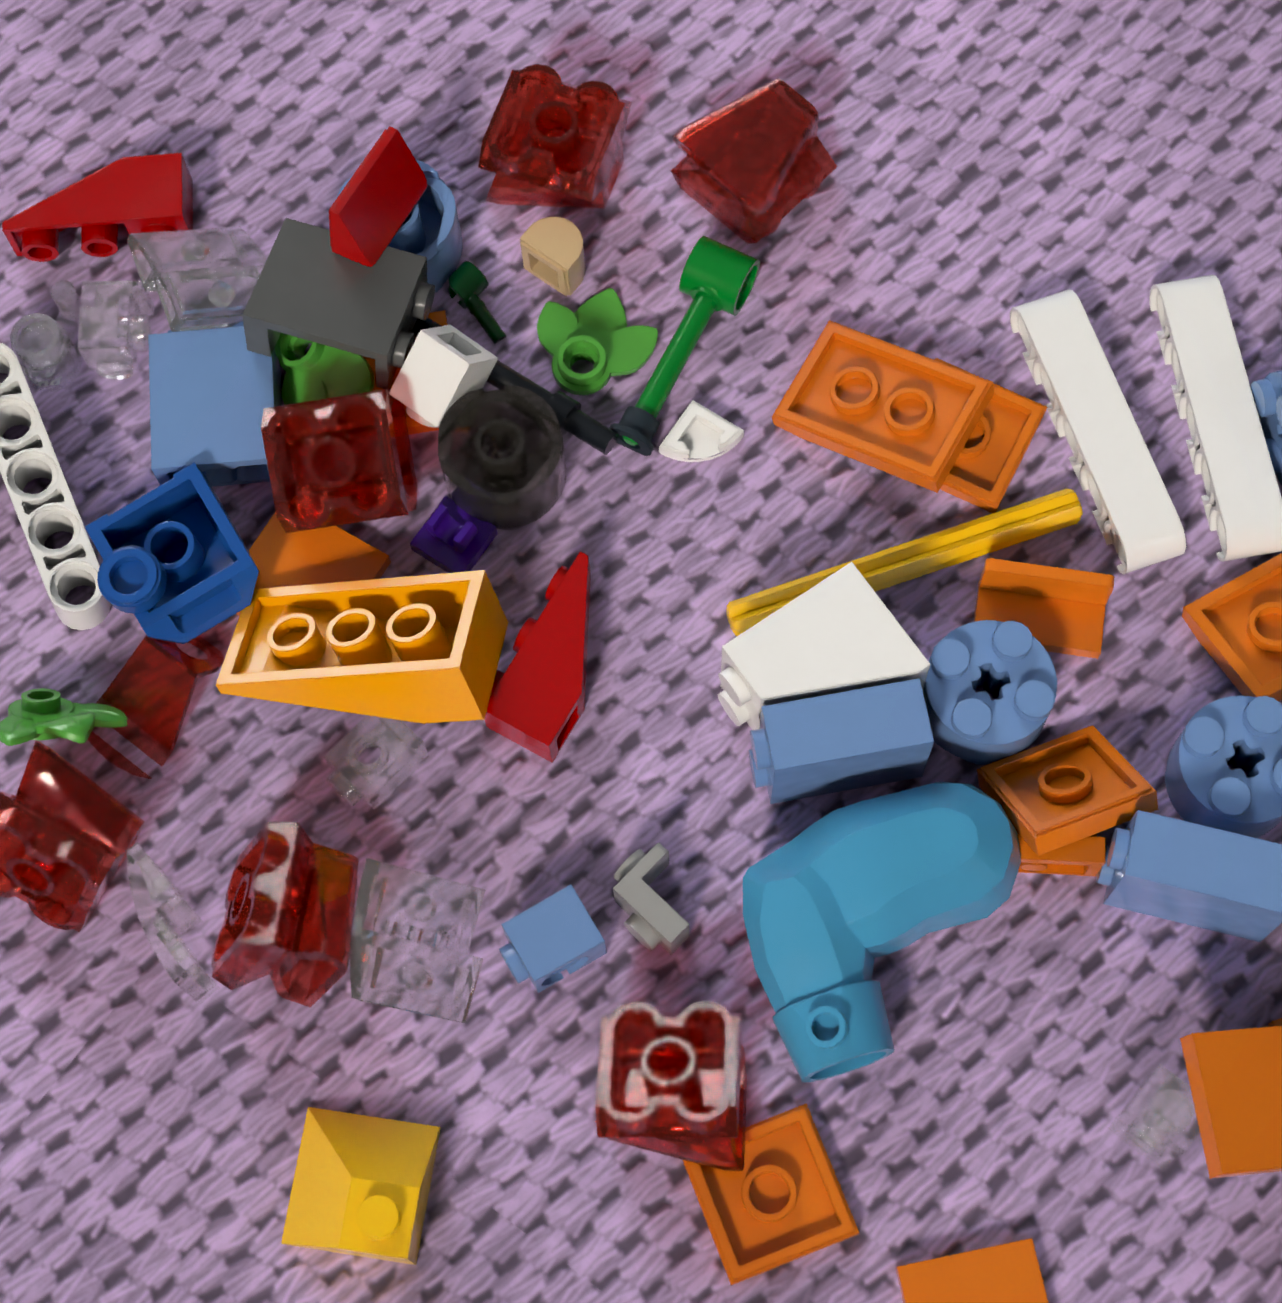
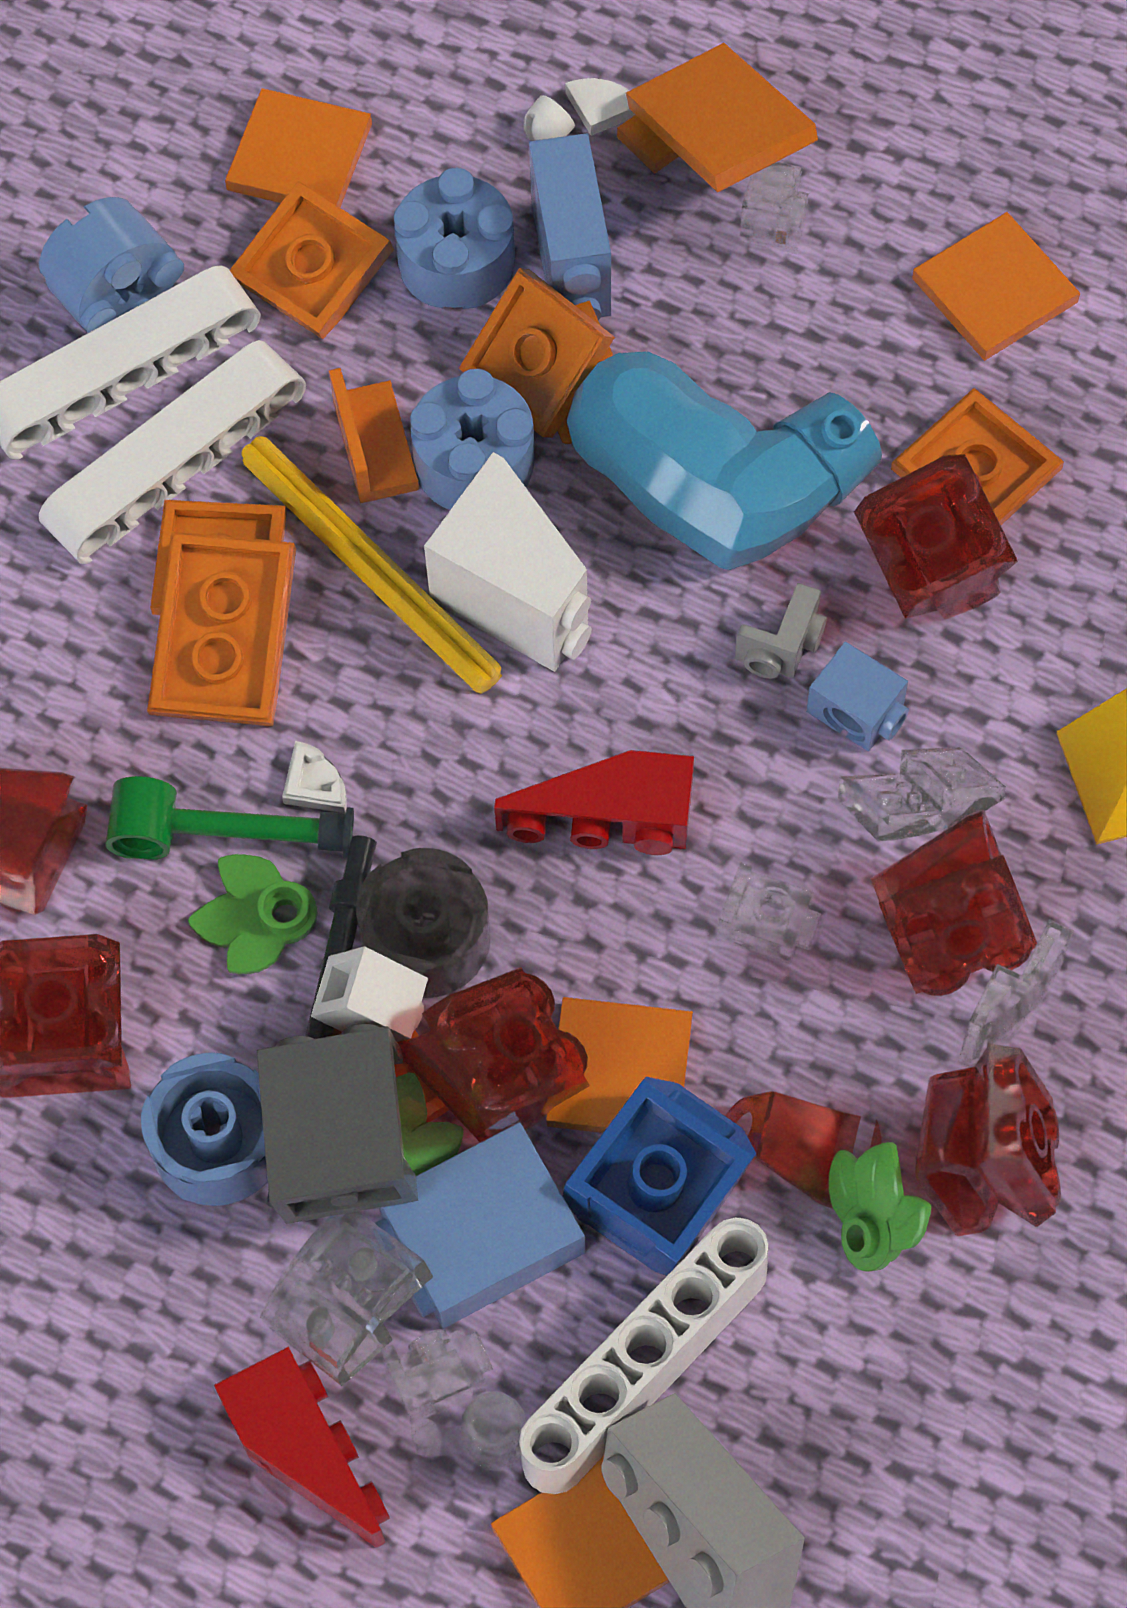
camera: 115 degrees left, 5 degrees down
(132, 579) = (712, 1182): blue tile -> none
(372, 647) = (677, 946): light orange slope -> none
(376, 200) = (220, 1116): red slope -> none
(453, 538) = (517, 944): dark purple tile -> none
(468, 284) = (246, 1051): dark green hand -> none
(554, 253) = (177, 975): tan brick -> none
(841, 741) = (588, 519): medium blue brick -> none

